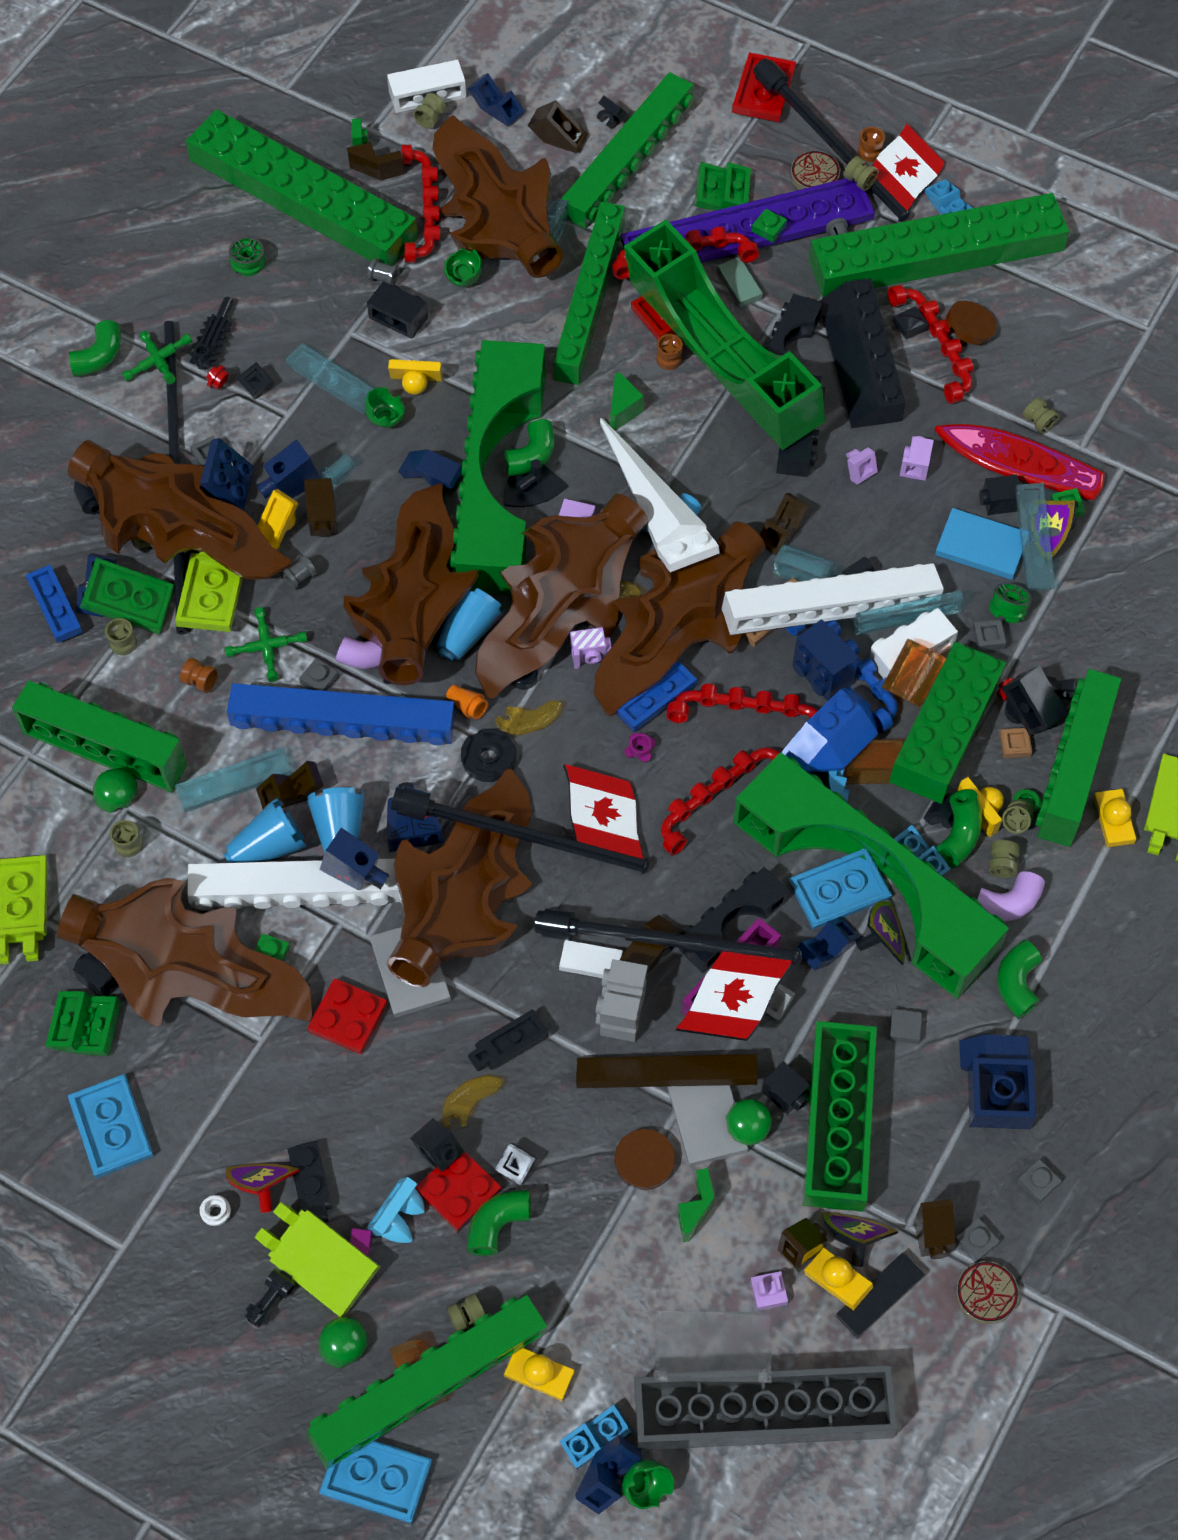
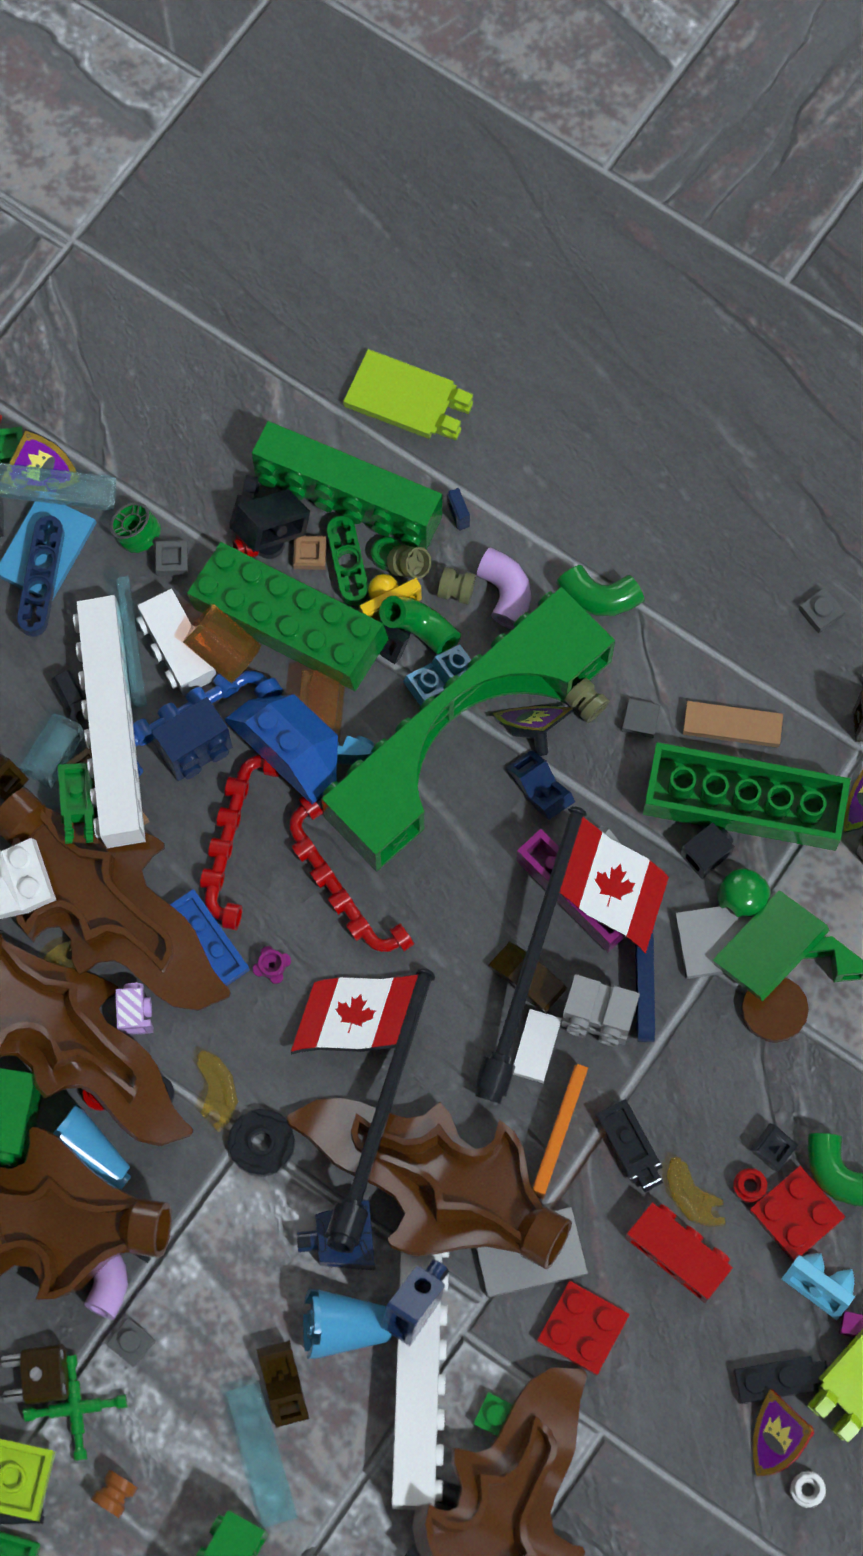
camera: 85 degrees left, 10 degrees up
(266, 837) = (354, 1413): dark azure cone -> none
(290, 615) = (42, 1374): none -> dark brown piece
(341, 714) = (190, 1316): blue brick -> none
(416, 1087) = (679, 1251): none -> red brick
(437, 1145) = (753, 1230): black brick -> none
(468, 702) = (189, 1161): orange cone -> none
(477, 1138) = (757, 1177): none -> red plate
(515, 981) = (559, 1130): none -> orange tile
(656, 1043) = (645, 986): none -> dark blue beam
(666, 1071) = (680, 974): dark brown tile -> none
(699, 1142) = (771, 945): none -> green tile
(754, 576) = (75, 799): none -> green hinge
(757, 896) = (476, 850): black arch -> none
(839, 888) = (471, 765): dark azure tile -> none
(912, 1106) = (733, 724): none -> medium nougat tile
(913, 975) = (587, 700): none -> olive wheel
(953, 534) = (44, 576): none -> dark blue beam
(993, 1047) = (682, 630): dark blue slope -> none
(1001, 1093) = (732, 629): dark blue brick -> none
(1021, 763) = (334, 542): none -> green beam
(1077, 854) = (458, 509): none -> dark blue tile
(1114, 817) = (416, 463): yellow tile -> none

